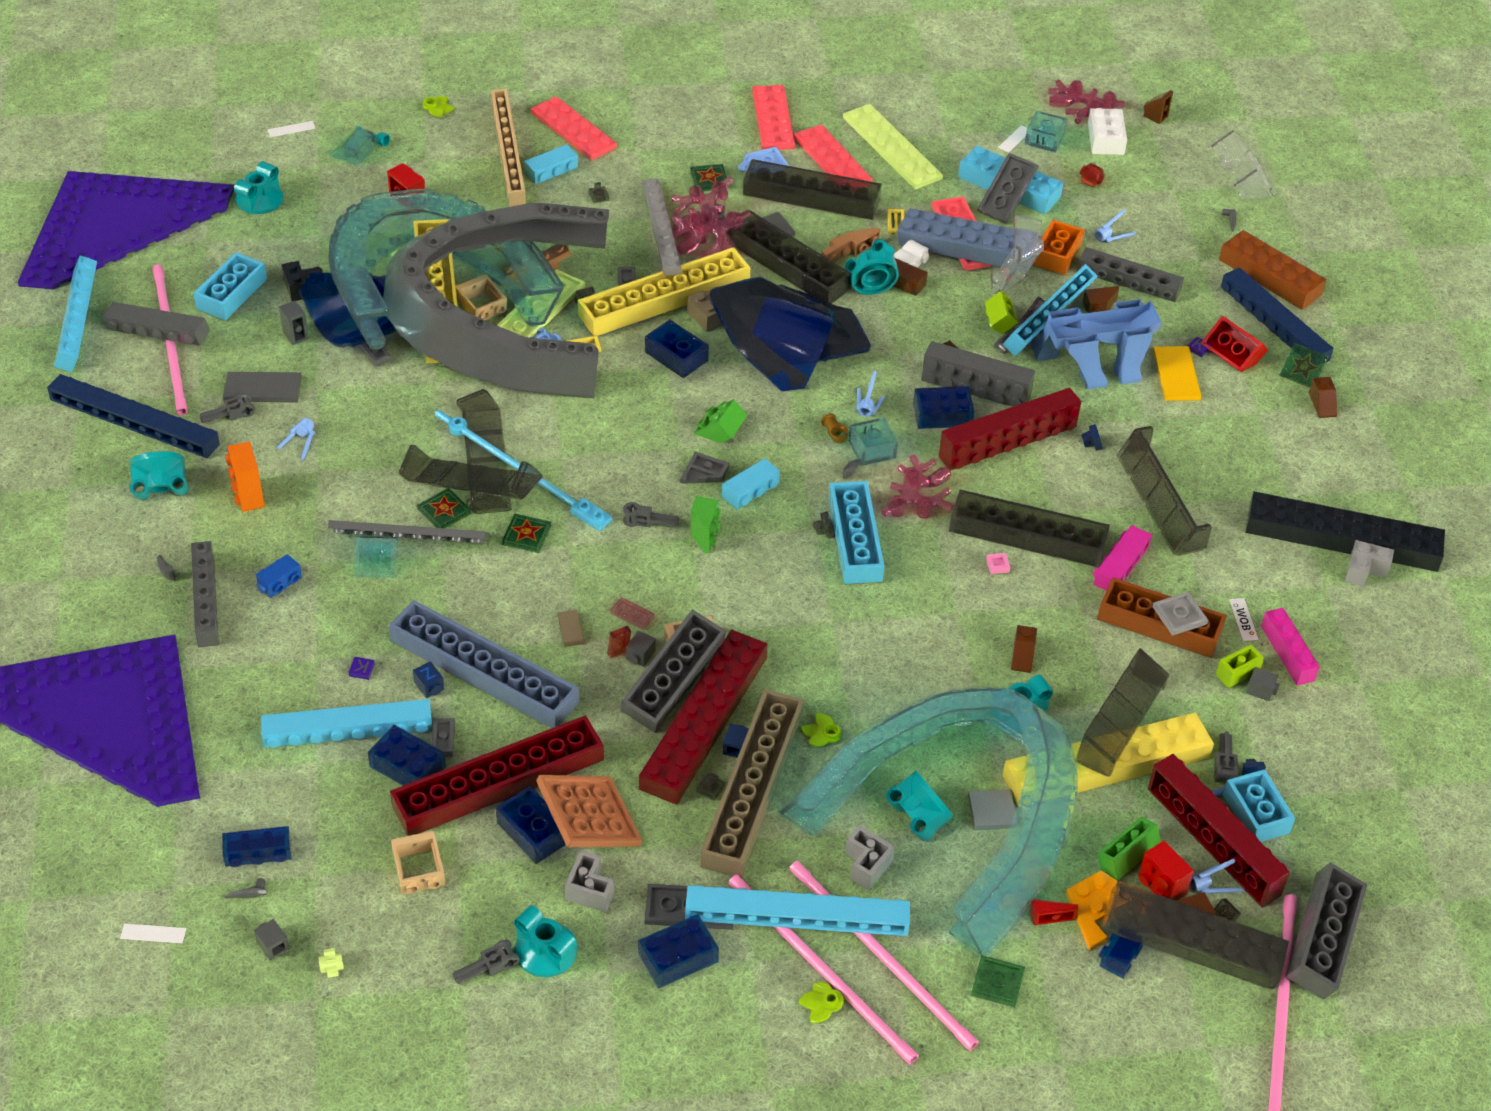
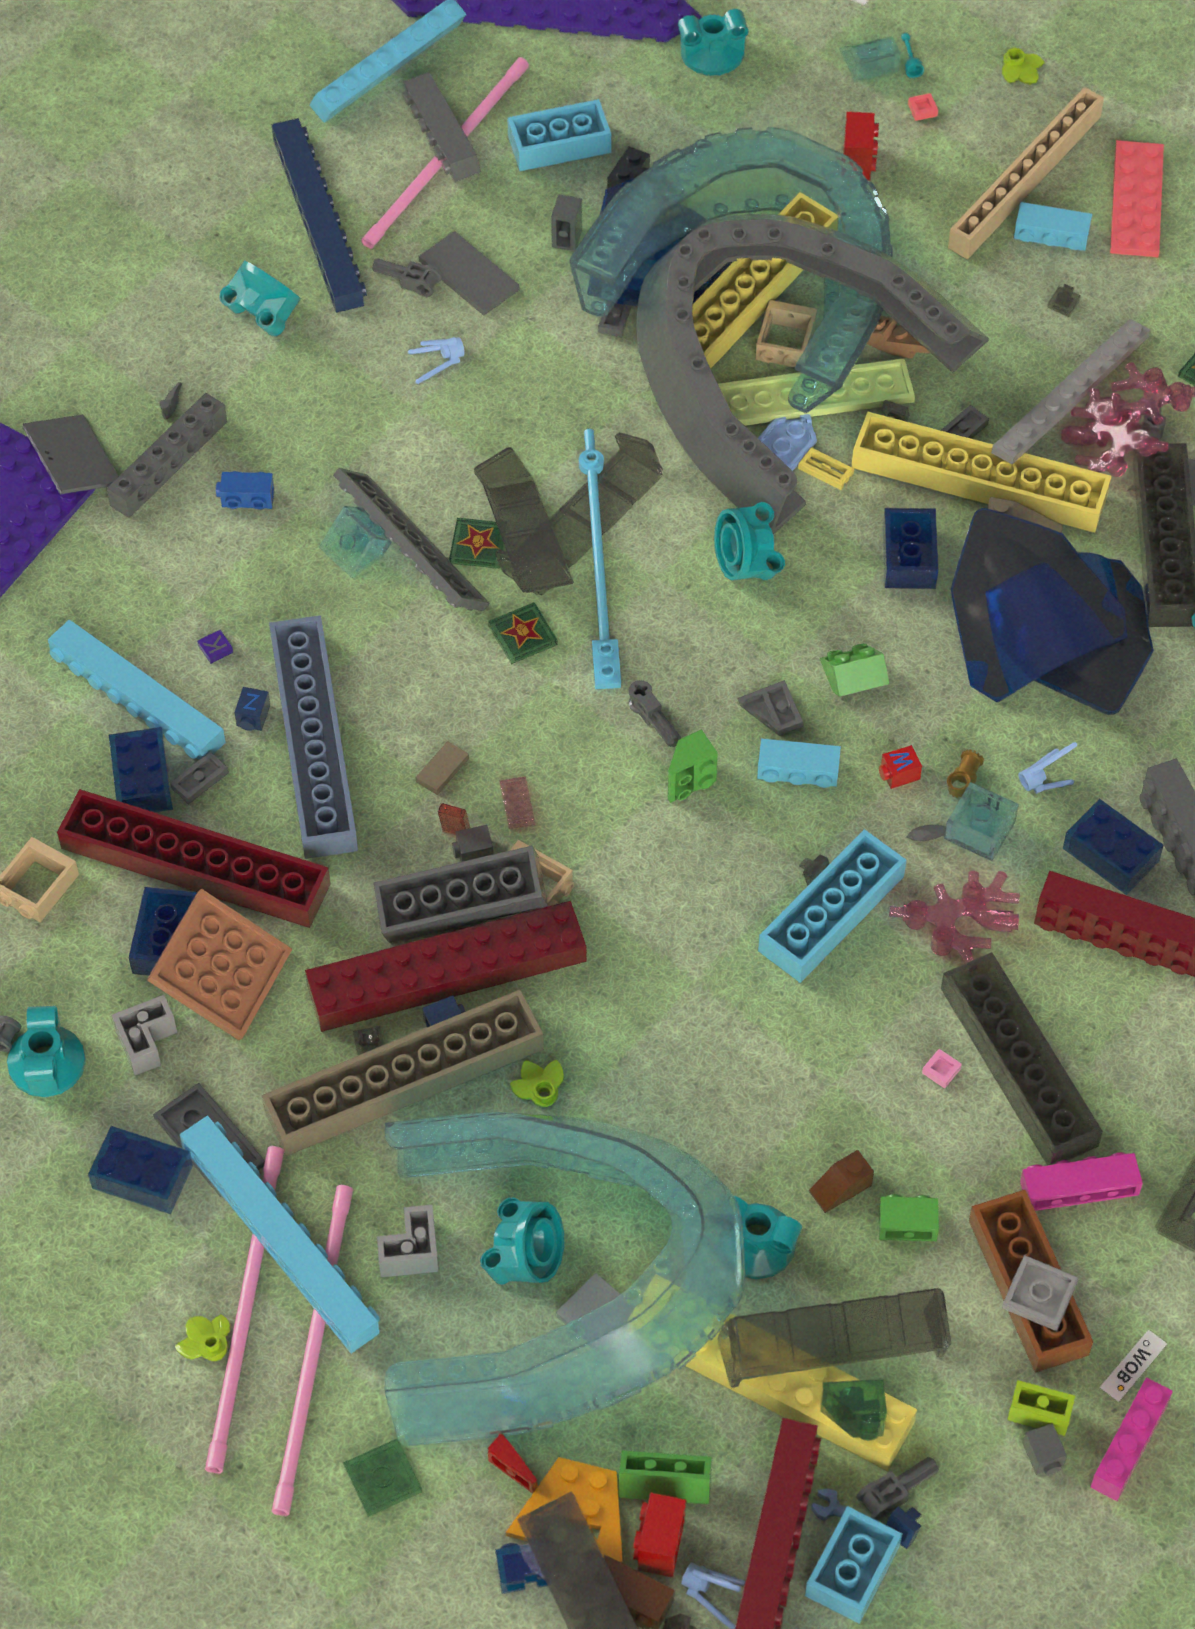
camera: 50 degrees right, 10 degrees up
(143, 635) = (71, 453): none -> dark grey container
(245, 476) = (324, 360): orange brick -> none
(412, 153) = (923, 107): none -> coral plate
(594, 404) = (747, 543): none -> teal piece
(801, 448) = (900, 767): none -> red brick
(1073, 639) = (908, 1218): none -> bright green brick
(1183, 726) = (856, 1407): none -> clear green slope

